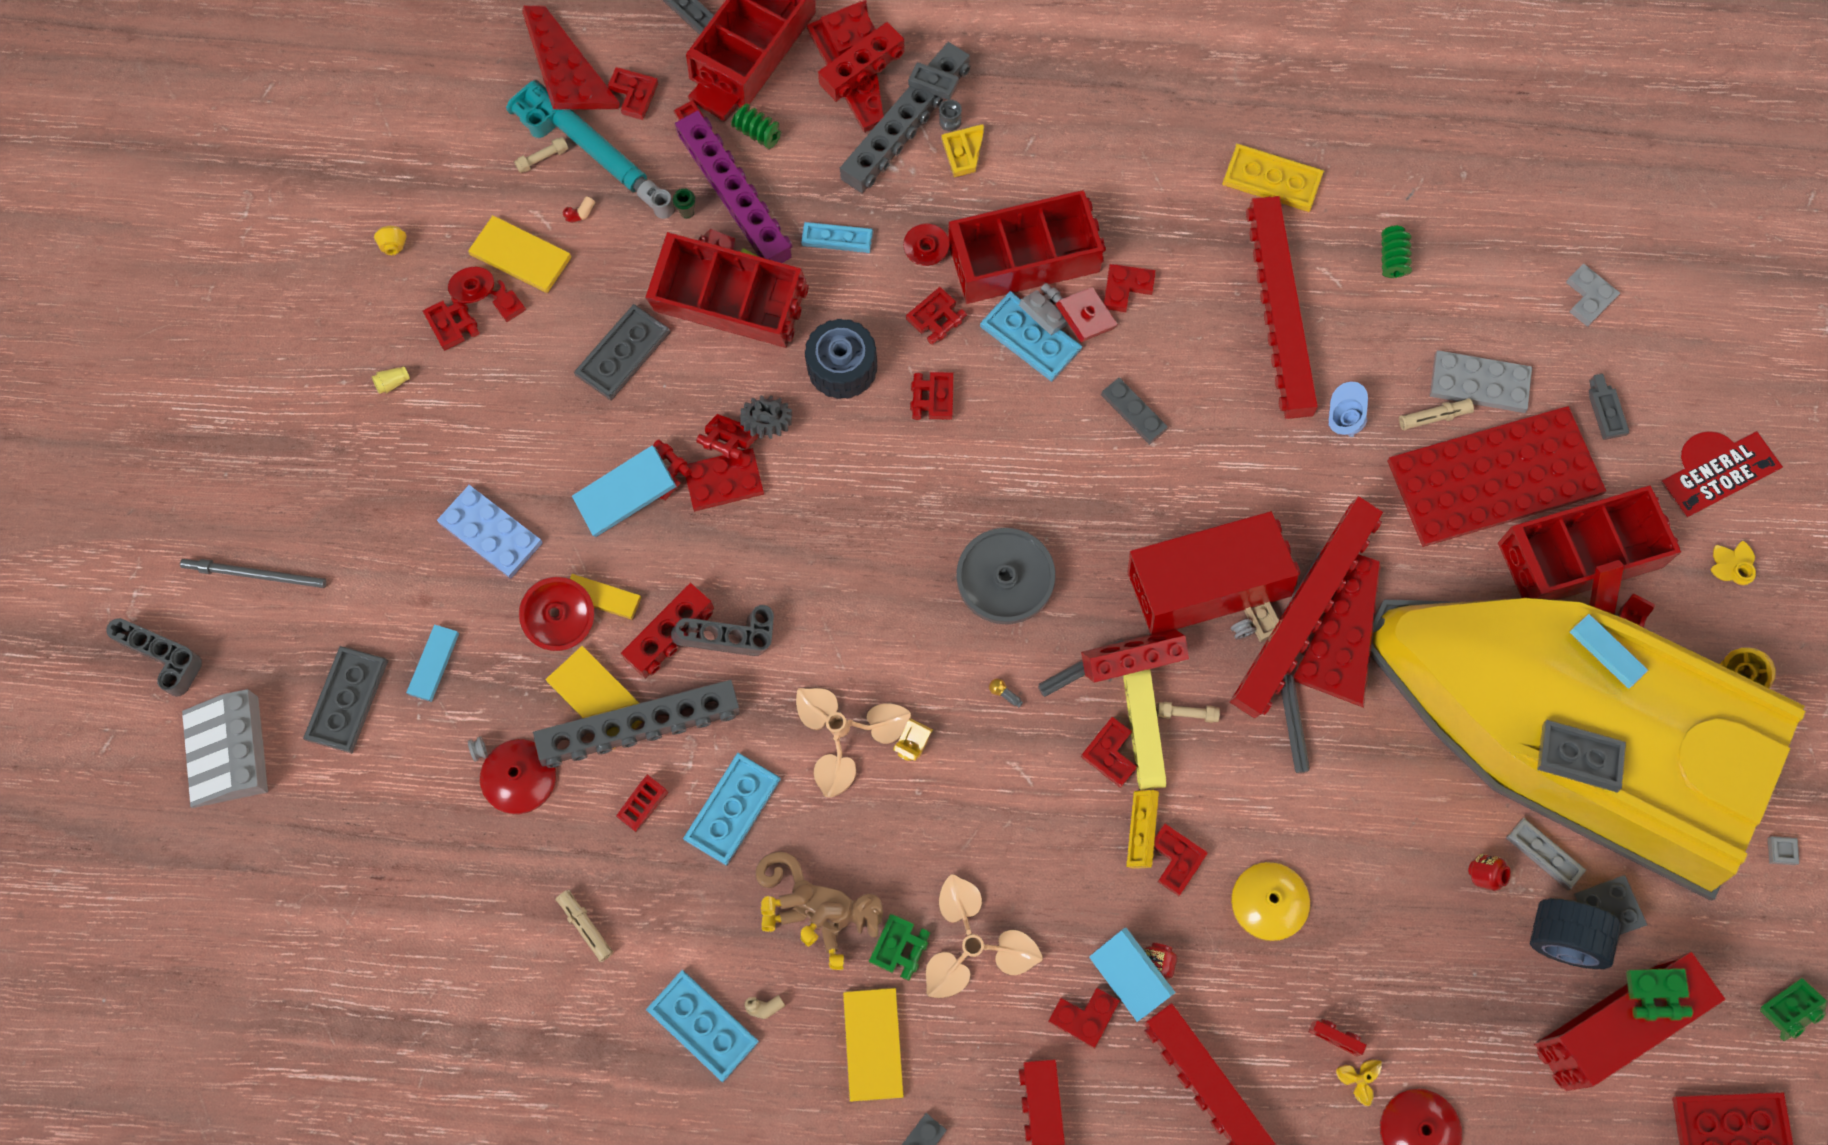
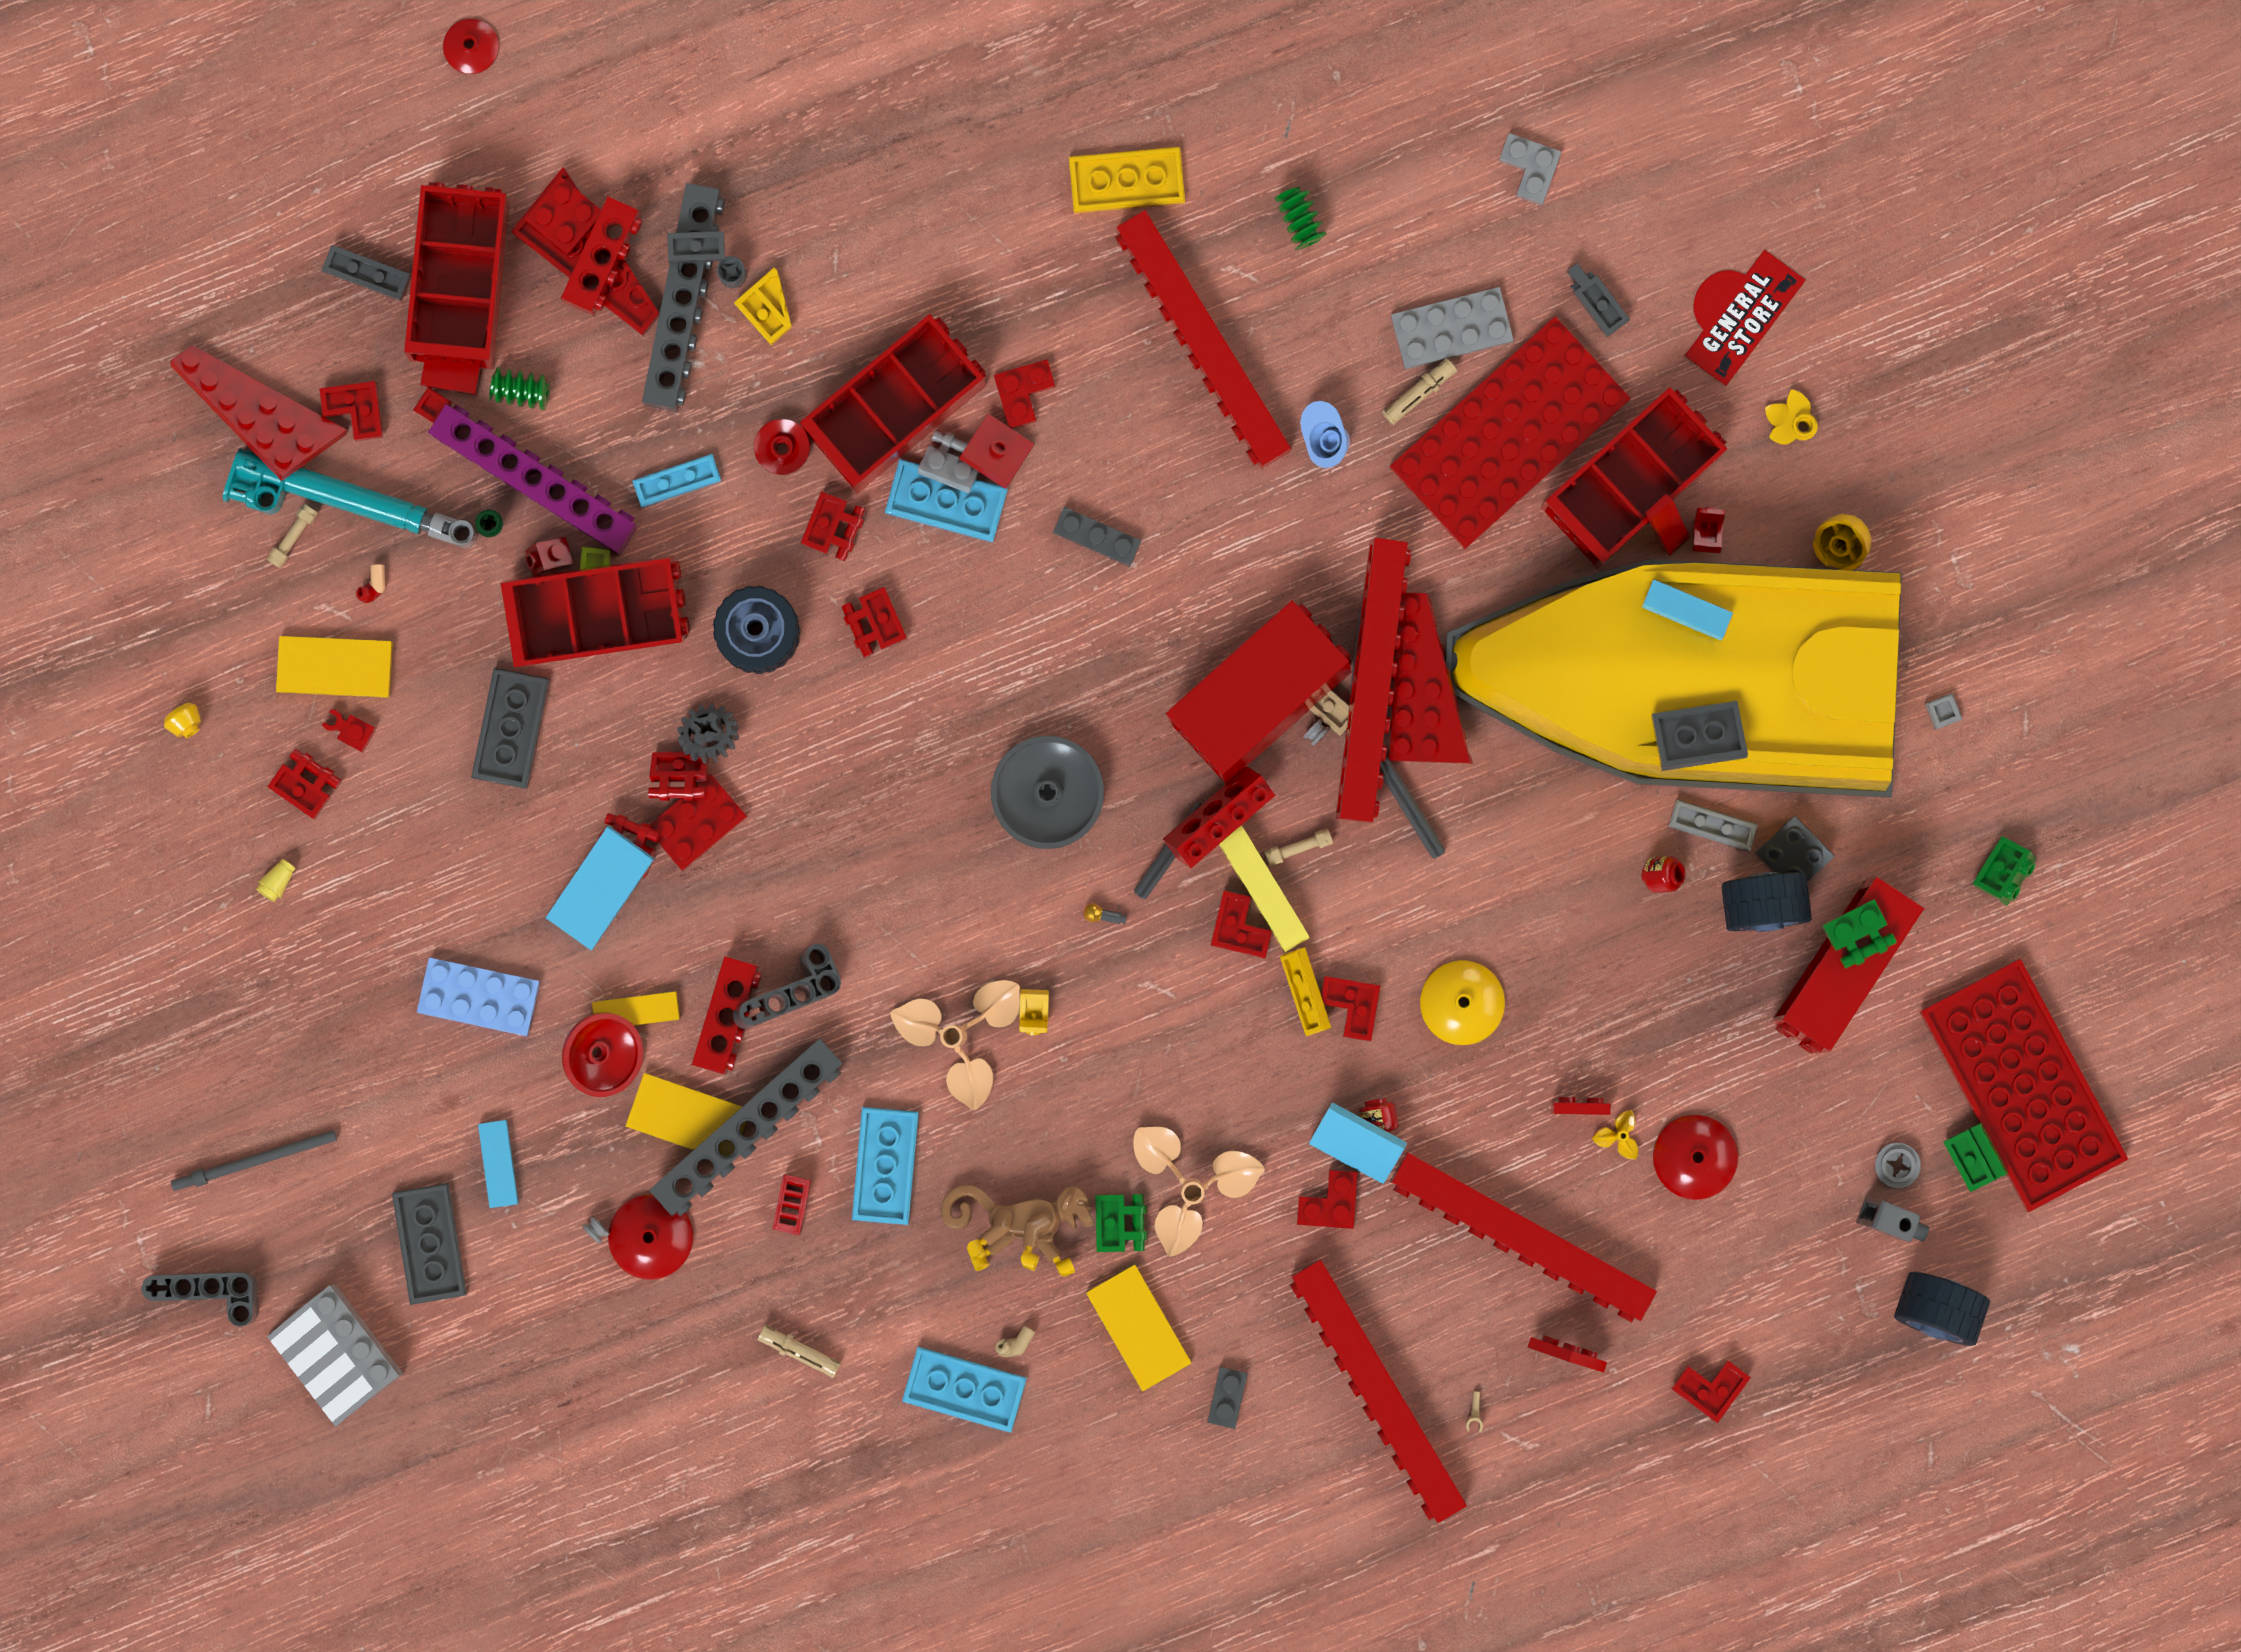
camera: 25 degrees left, 15 degrees up
(471, 284) = (296, 723): red dish -> none

